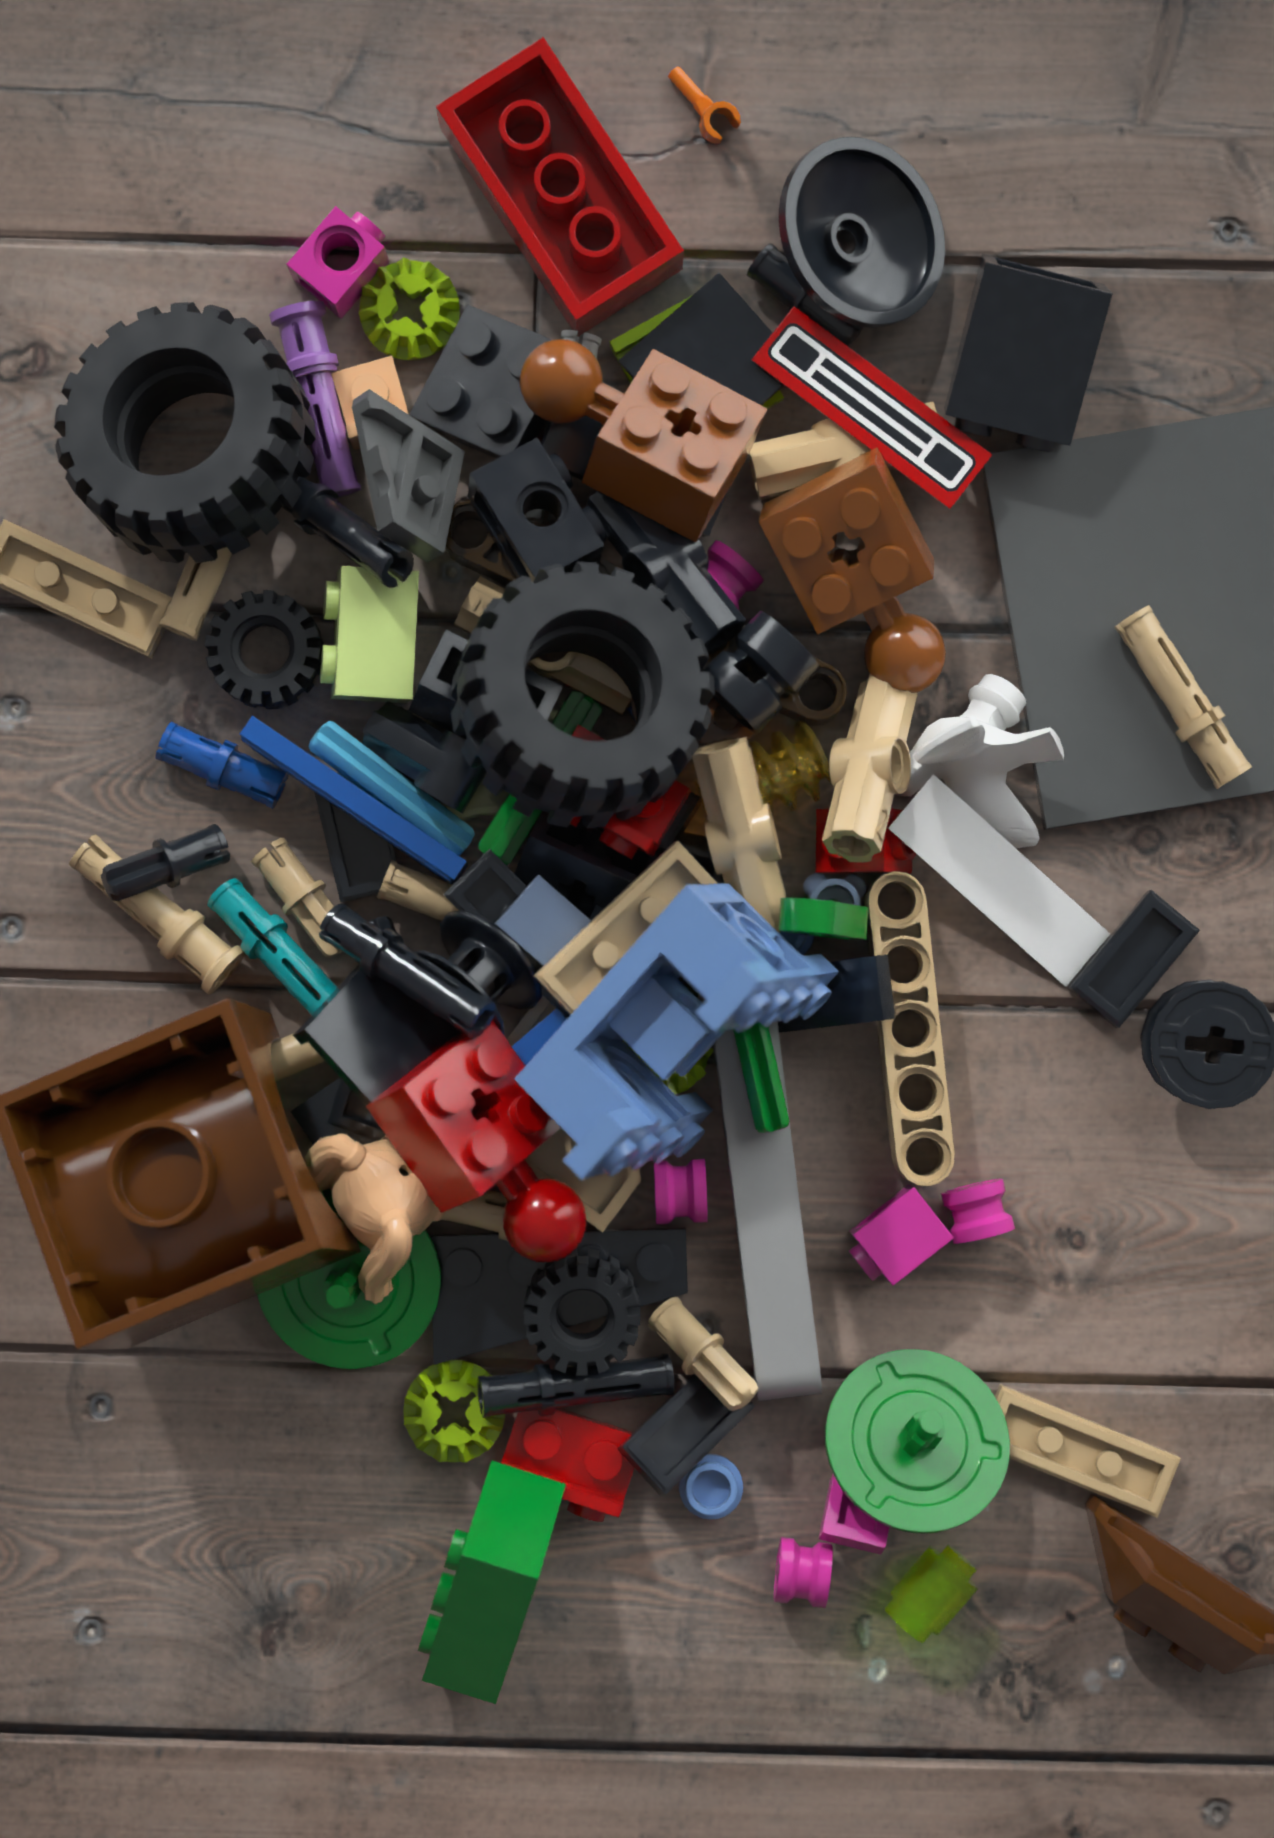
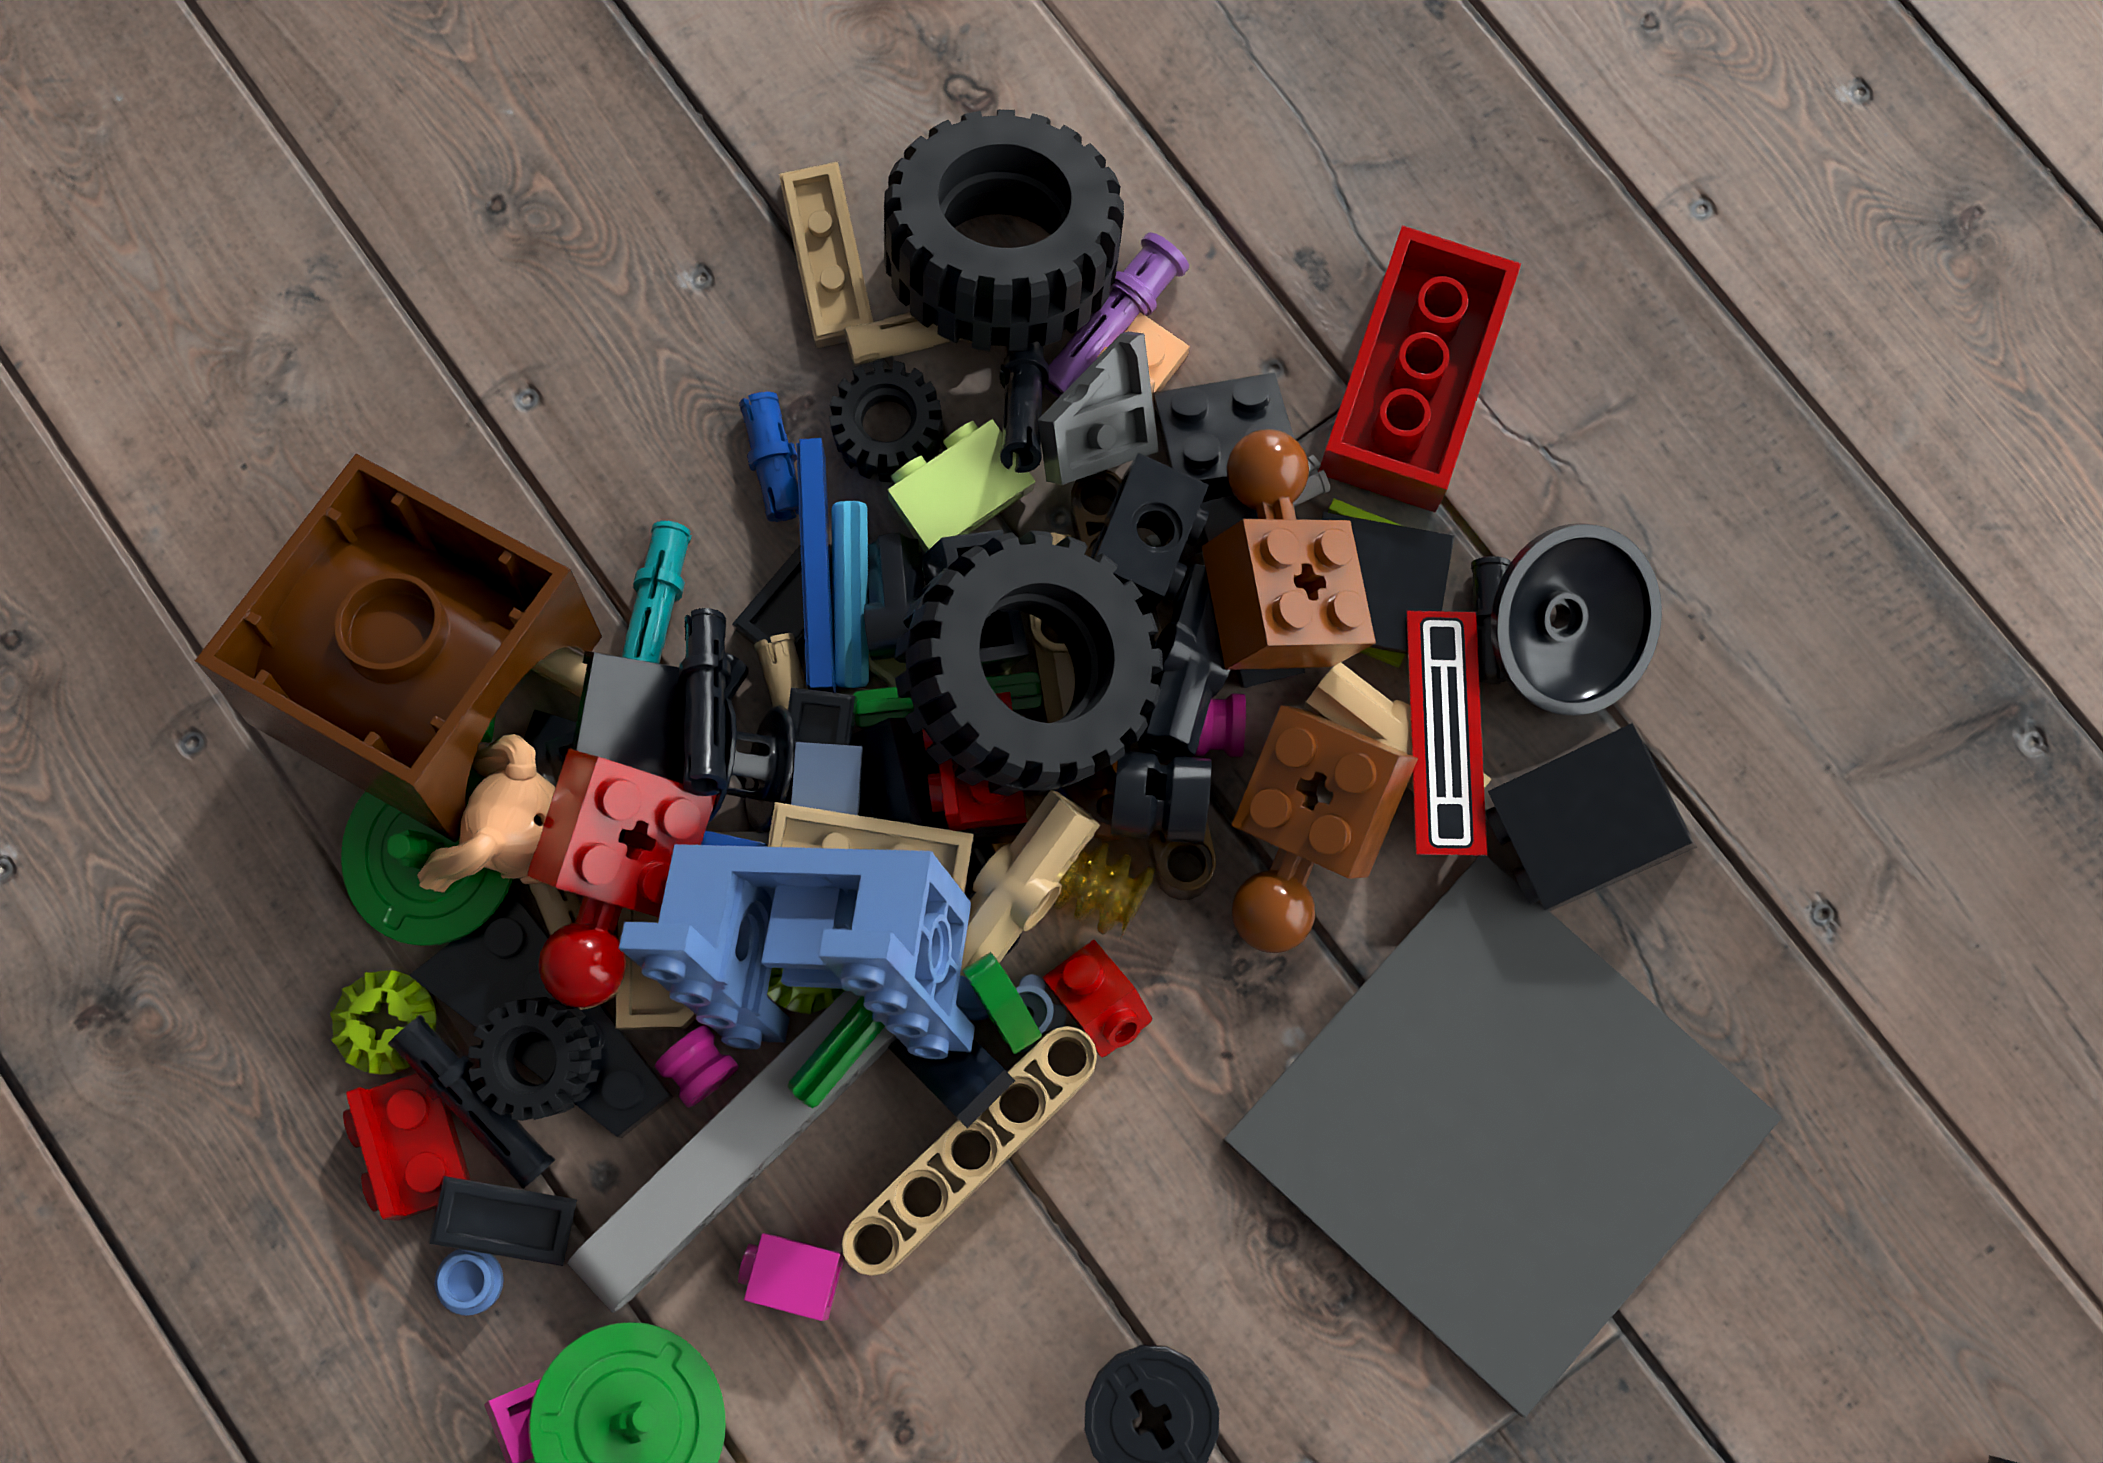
camera: 55 degrees right, 10 degrees down
(165, 863) = (659, 467): black axle -> none
(178, 931) = (614, 519): tan pin -> none
(297, 890) = (718, 576): tan axle -> none
(339, 288) = (1217, 276): dark pink brick -> none
(404, 338) = (1253, 355): lime gear -> none
(492, 1583) = (248, 1149): green wedge -> none
(703, 1354) = (572, 1187): tan axle -> none
(704, 105) = (1574, 432): orange hand -> none
(803, 1572) = (448, 1414): dark pink wheel -> none
(869, 770) = (1153, 951): tan piece -> none
(977, 753) = (1231, 1033): white animal -> none
(977, 1211) = (862, 1327): dark pink wheel -> none
(999, 880) = (1150, 1132): white sticker -> none
(1133, 958) = (1174, 1297): black tile -> none
(1184, 699) = (1411, 1189): tan pin -> none

